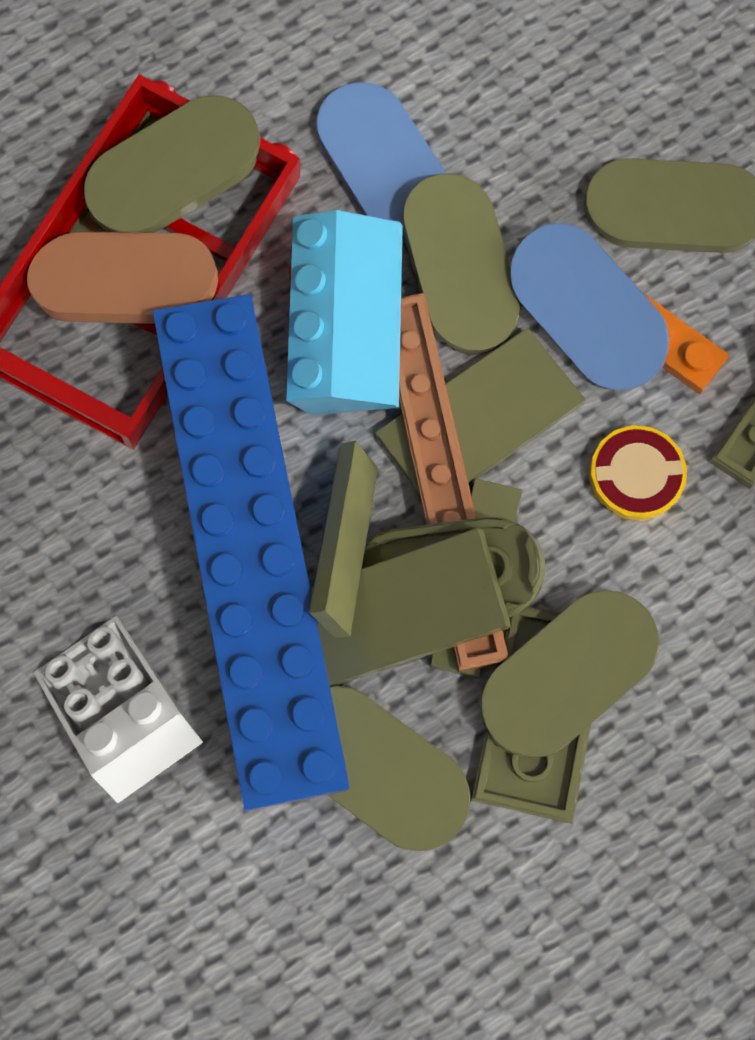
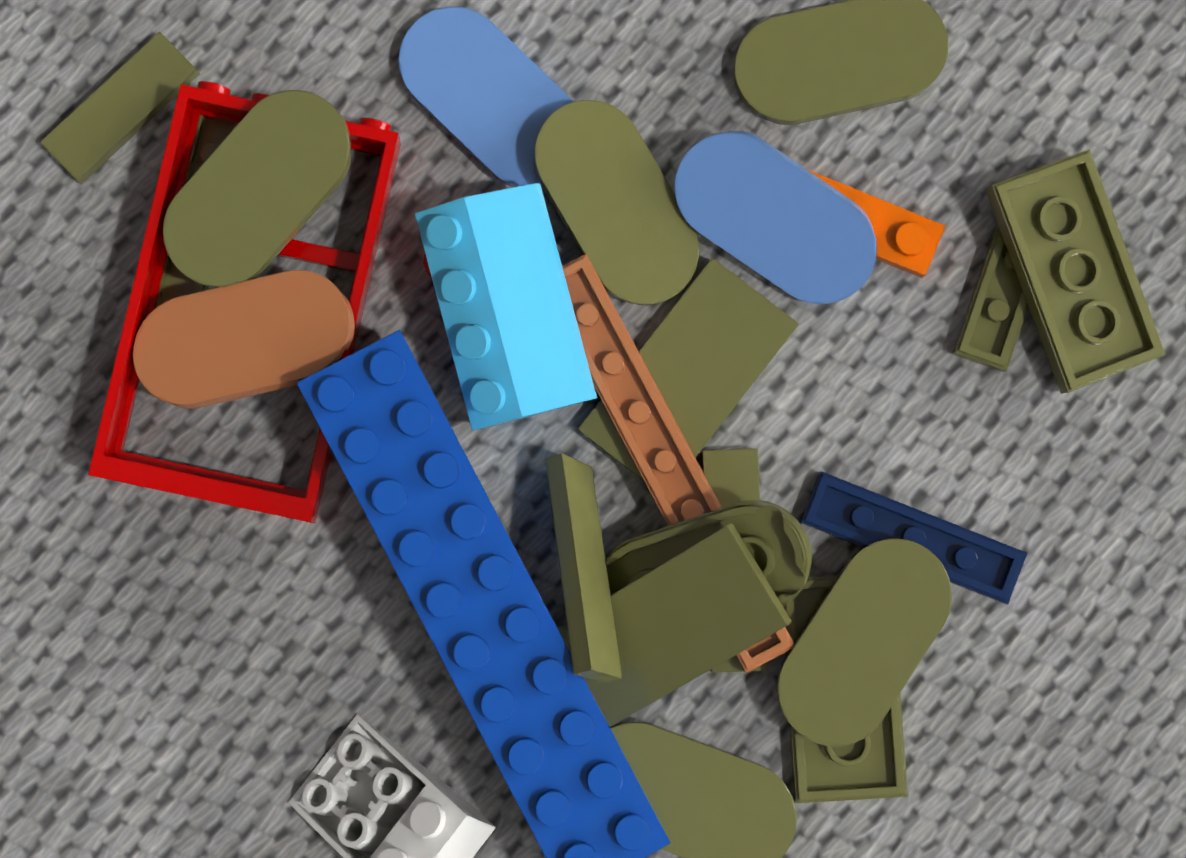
camera: 15 degrees left, 10 degrees up
(83, 91) = (120, 108): none -> olive tile
(638, 472) = (877, 390): tile -> none
(682, 634) = (868, 517): none -> dark blue tile

